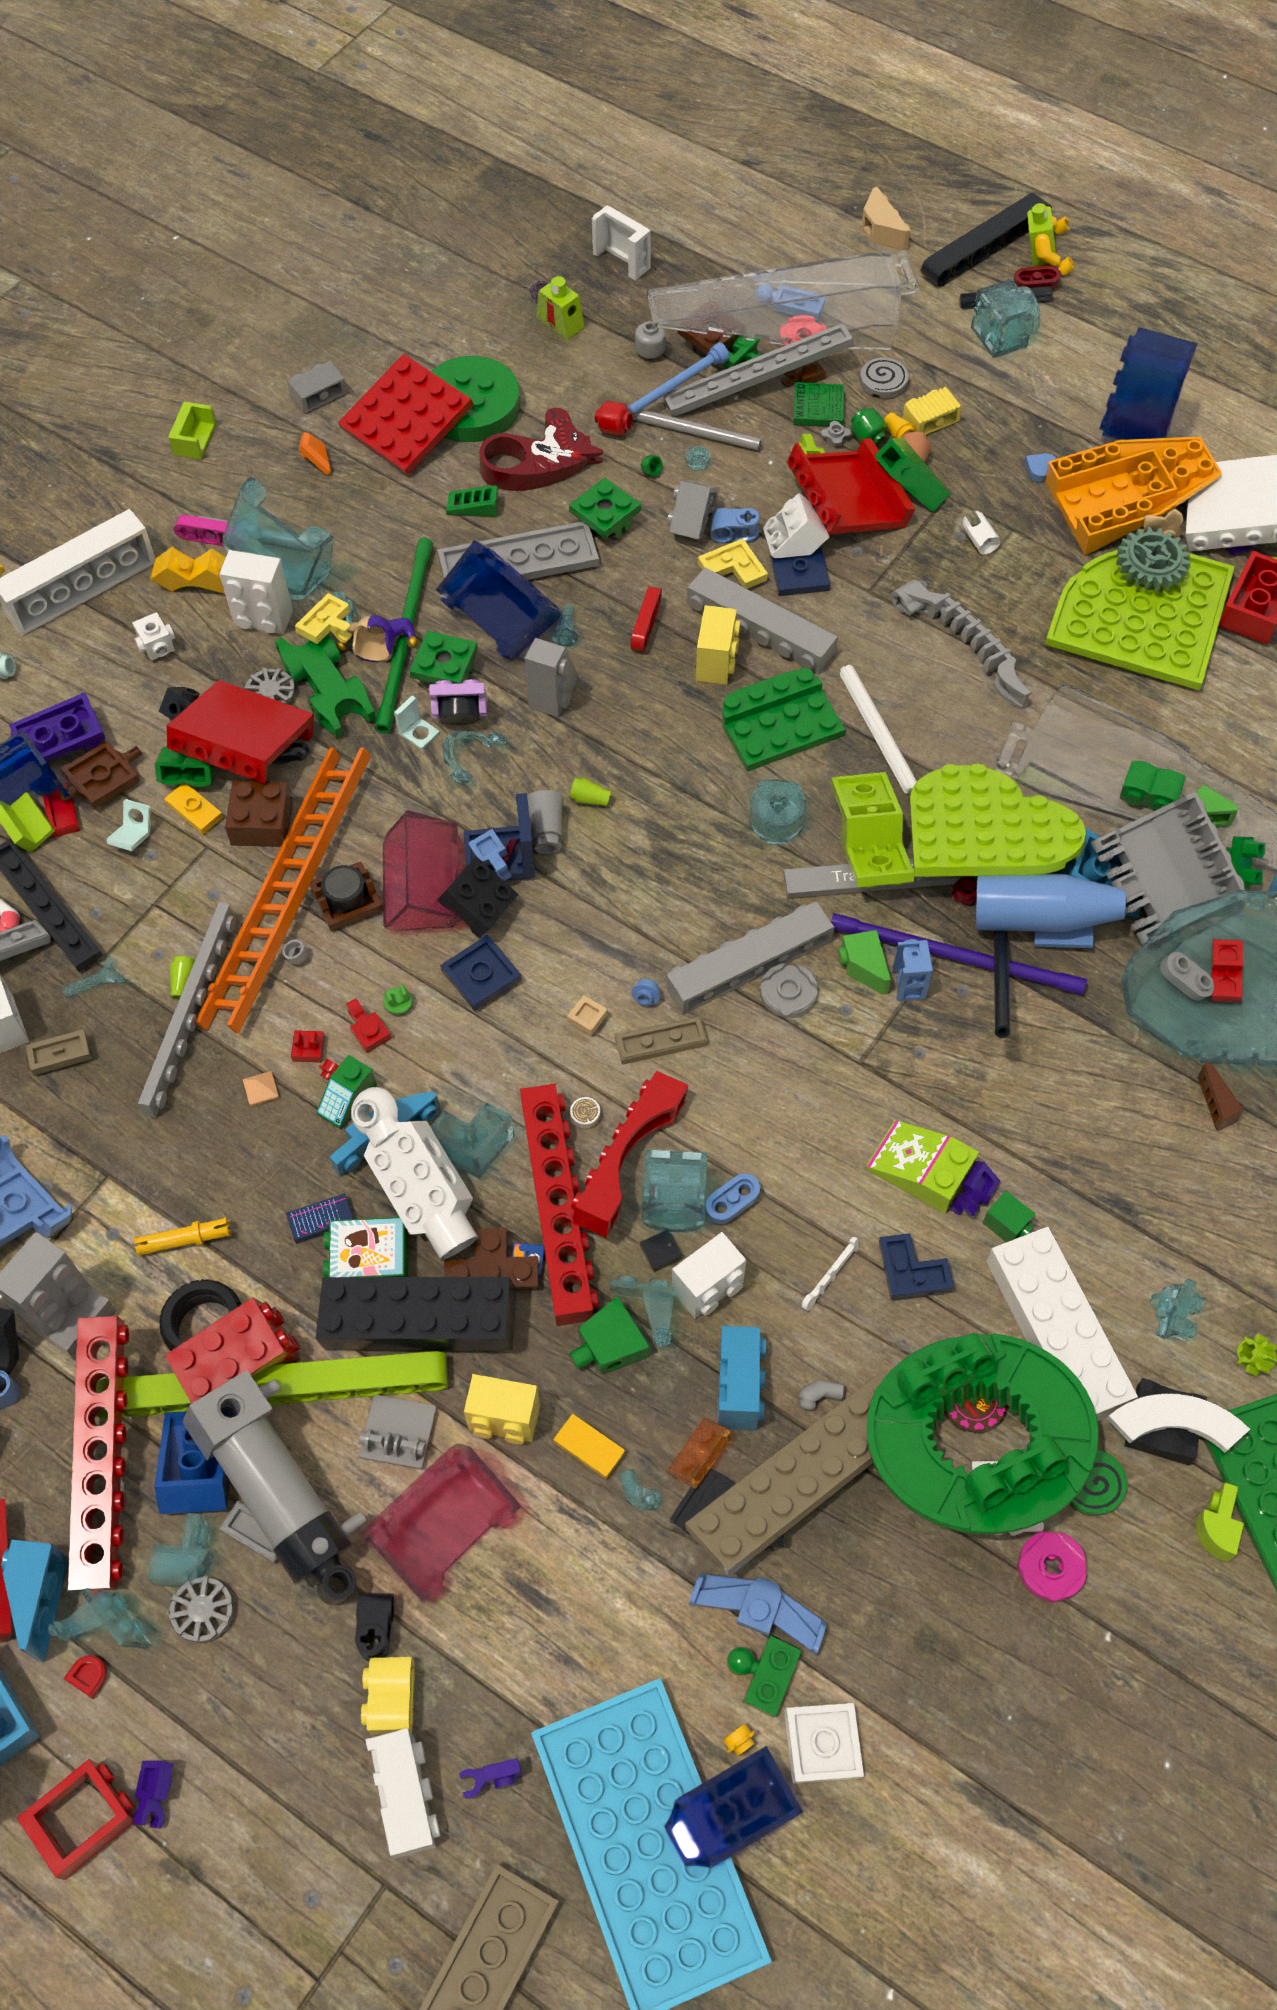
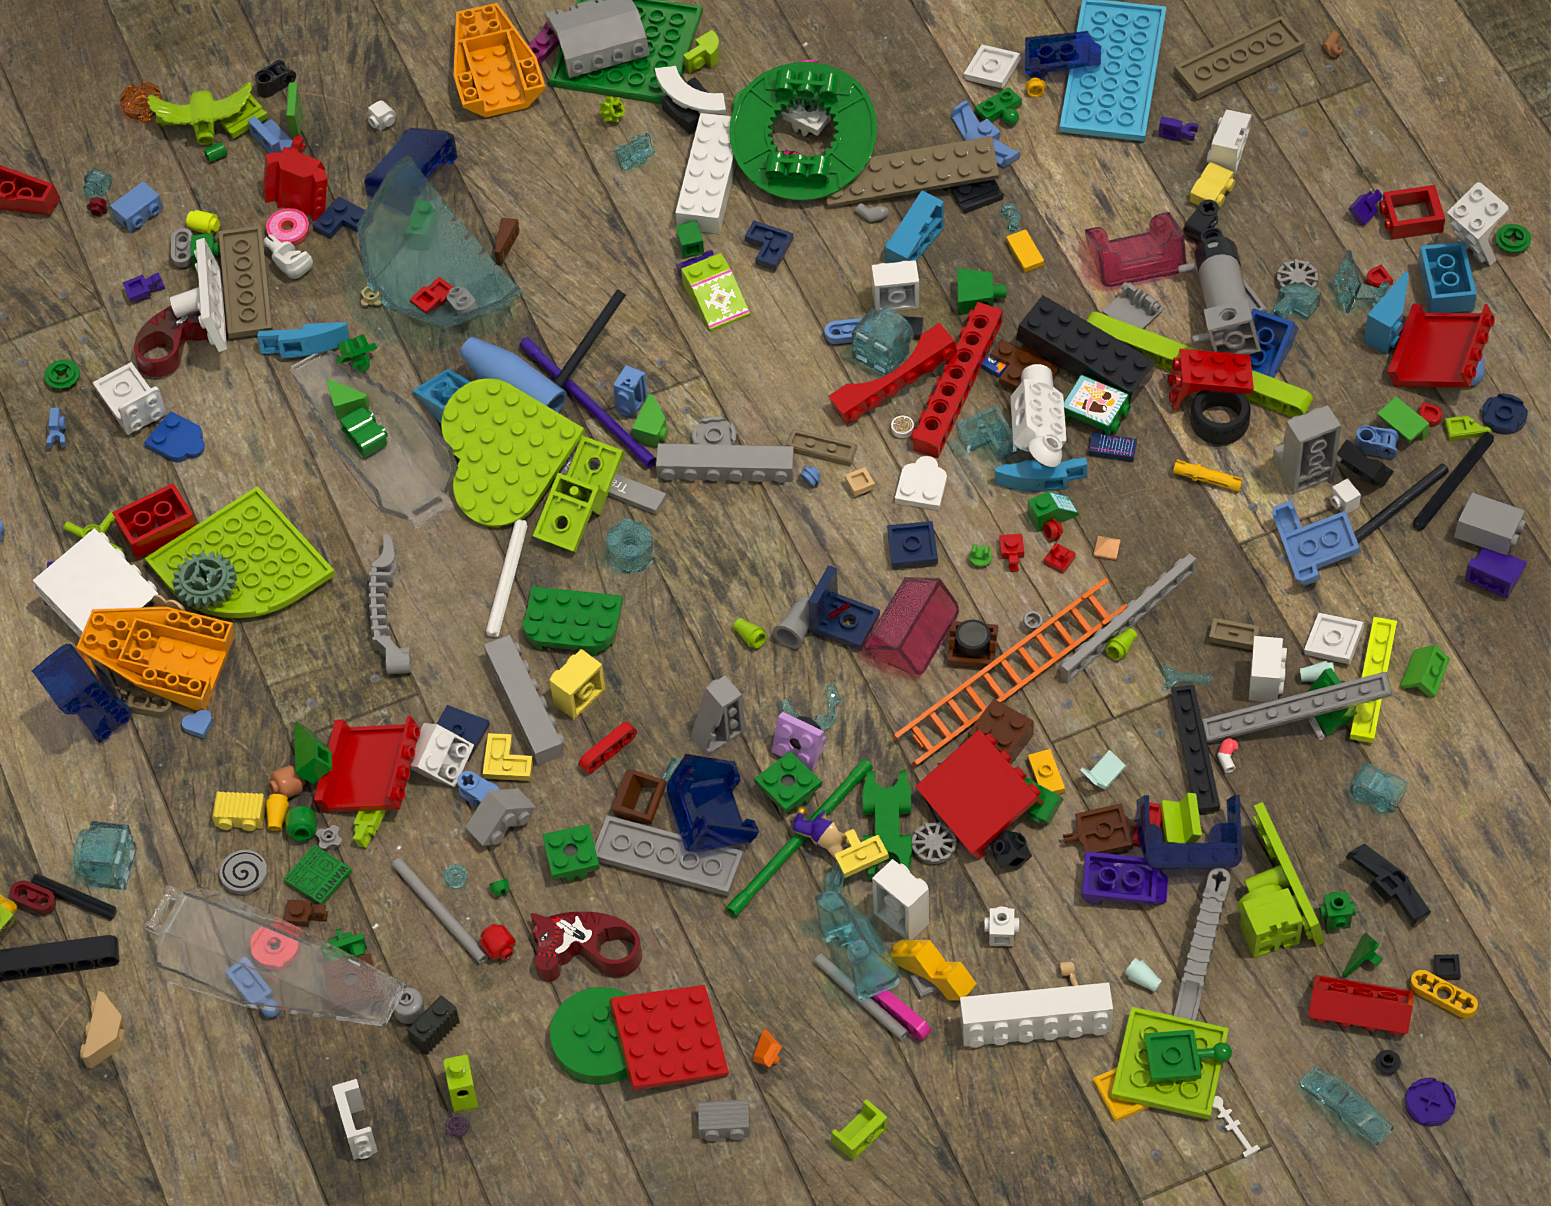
camera: 145 degrees left, 5 degrees down
(72, 641) = (1068, 969): none -> tan hand
(91, 1335) = (1319, 363): brick -> none
(409, 720) = (842, 754): light aqua bracket -> none
(478, 896) = (883, 581): black brick -> none
(487, 506) = (653, 931): green slope -> none
(490, 851) = (852, 609): medium blue plate -> none
(502, 1409) = (1065, 277): light yellow brick -> none
(516, 1053) = (922, 484): none -> white plate
(594, 589) = (629, 793): none -> reddish brown tile
(616, 338) = (433, 1025): none -> pearl dark grey brick
(658, 1303) = (940, 295): clear light blue plate -> none
(699, 1453) = (964, 214): clear orange plate -> none
(717, 355) = (372, 944): medium blue piece -> none
(758, 370) = (347, 915): light grey plate -> none
(810, 1299) = (841, 259): white piece -> none
(982, 535) = (298, 685): white piece -> none
(1169, 861) = (413, 370): light grey hinge -> none

